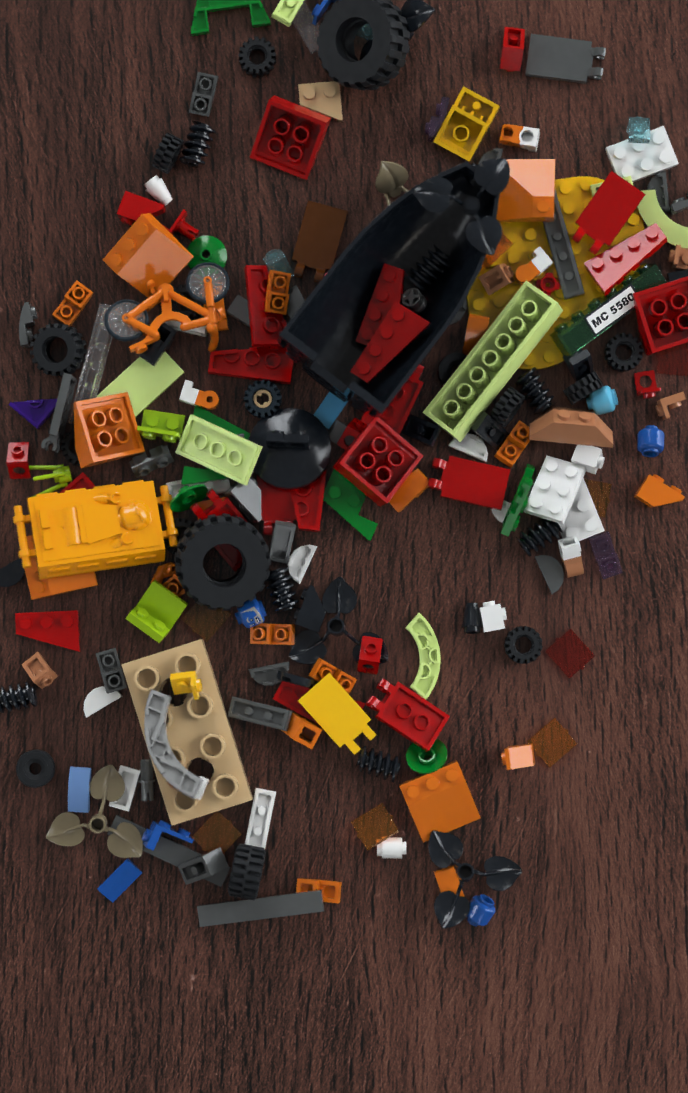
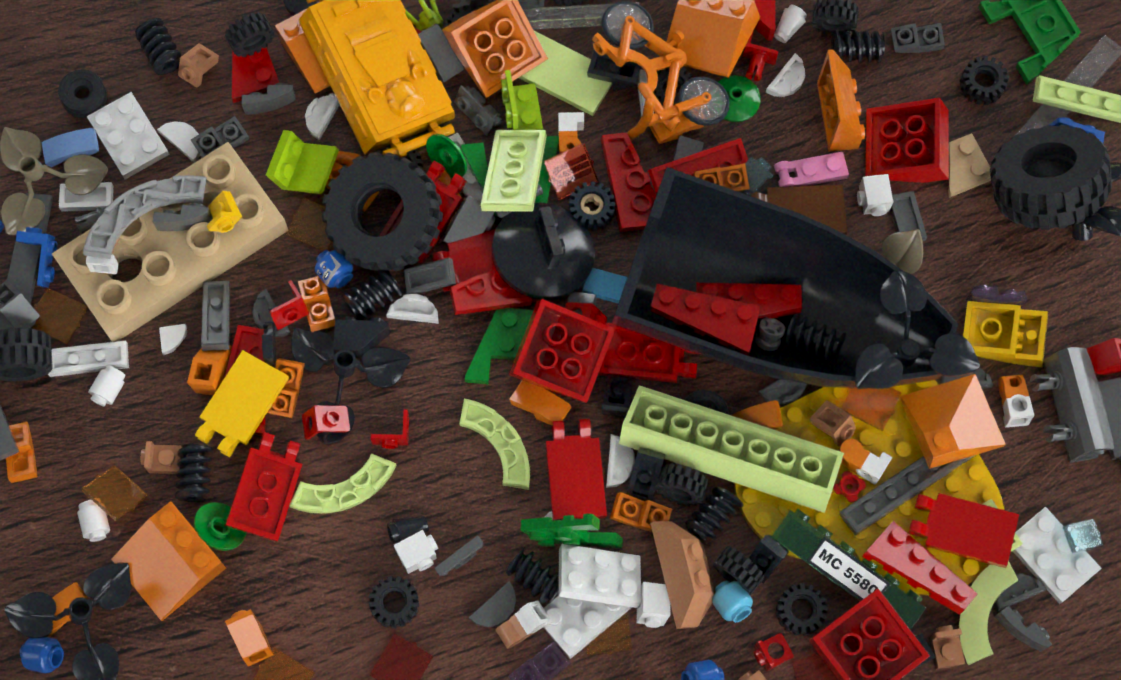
camera: 70 degrees right, 15 degrees down
(35, 621) = (249, 34): none -> black tyre
(82, 742) = (128, 135): none -> white plate
(88, 614) = (276, 97): none -> dark grey slope
(95, 475) = (440, 52): none -> dark grey slope
(113, 585) = (320, 114): none -> white tile
(180, 709) = (190, 215): none -> dark grey slope
(204, 207) = (789, 78): none -> white tile
(229, 405) = (570, 170): none -> clear red piece
(245, 178) = (839, 105): none -> orange slope
(264, 752) = (172, 337): none -> white tile
(277, 655) = (289, 311): none -> red bracket
(287, 218) = (812, 170): none -> bright pink plate
(288, 811) = (107, 386): none -> white brick
(325, 178) = (875, 195): none -> white brick
(350, 161) = (907, 214): none -> dark grey tile
(358, 784) = (160, 458): none -> nougat bracket
(402, 610) = (391, 441): none -> red bracket
(423, 526) = (503, 438): none -> yellowish green tile
(506, 586) = (460, 557): none -> dark grey tile
(540, 92) = (1077, 403): none -> dark grey piece

